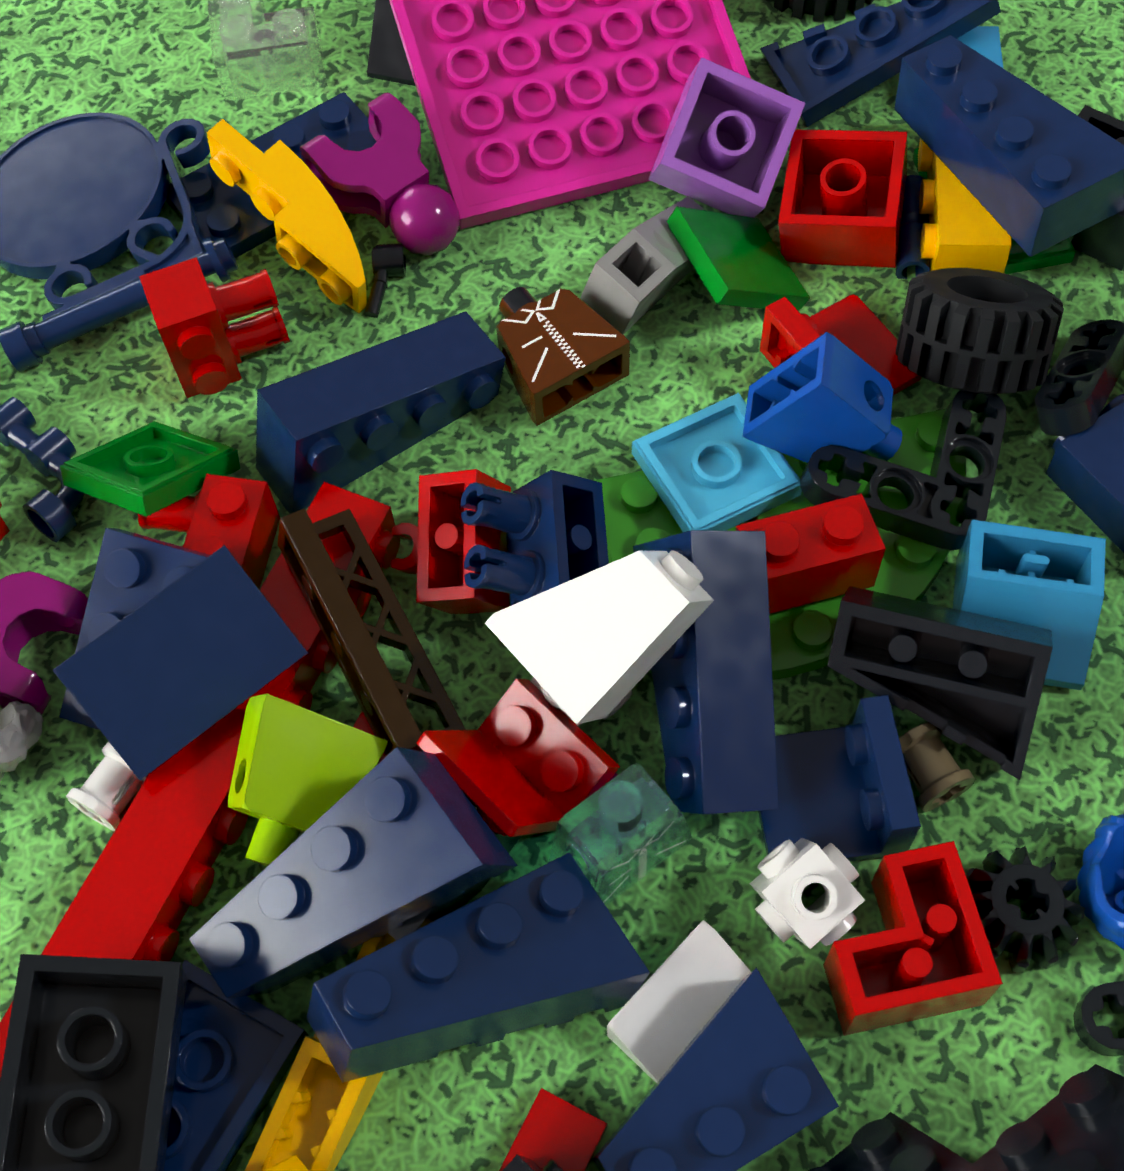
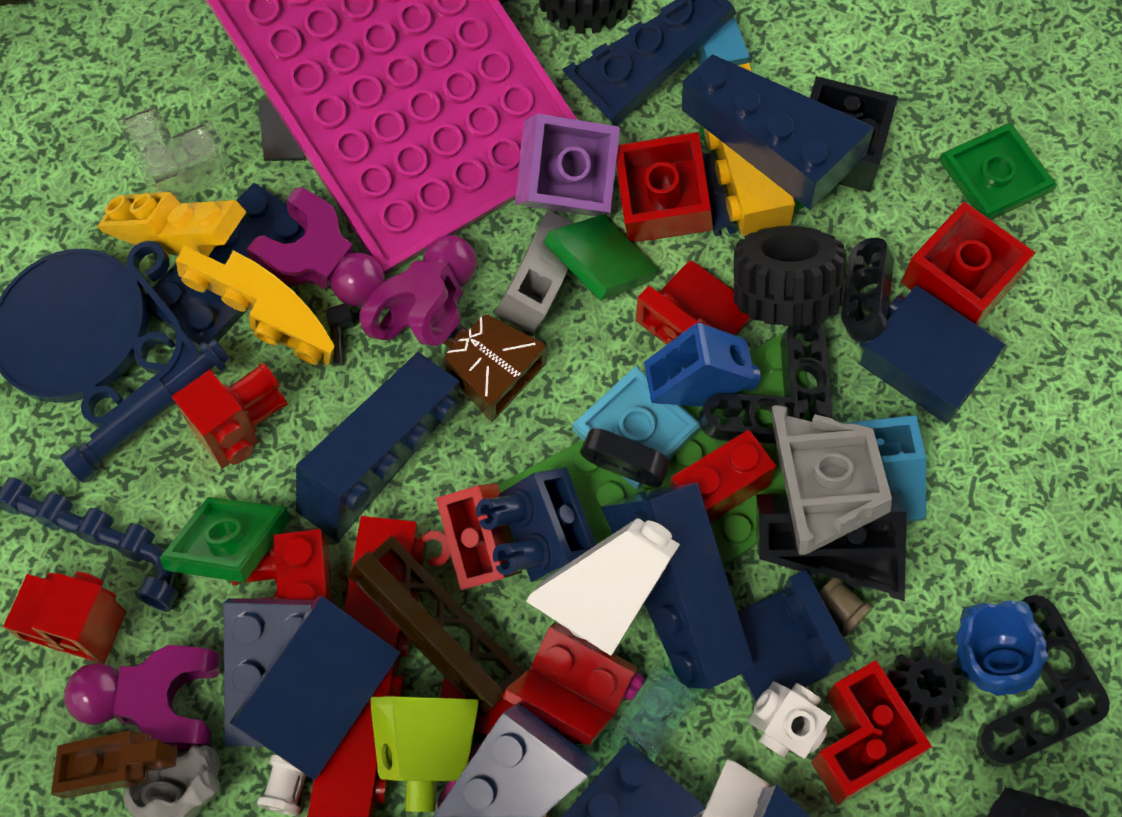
camera: 20 degrees left, 5 degrees up
(211, 96) = (171, 223): none -> yellow slope
(499, 250) = (423, 294): none -> magenta piece
(683, 489) = (625, 457): none -> black beam
(955, 577) = (829, 477): none -> light grey wing

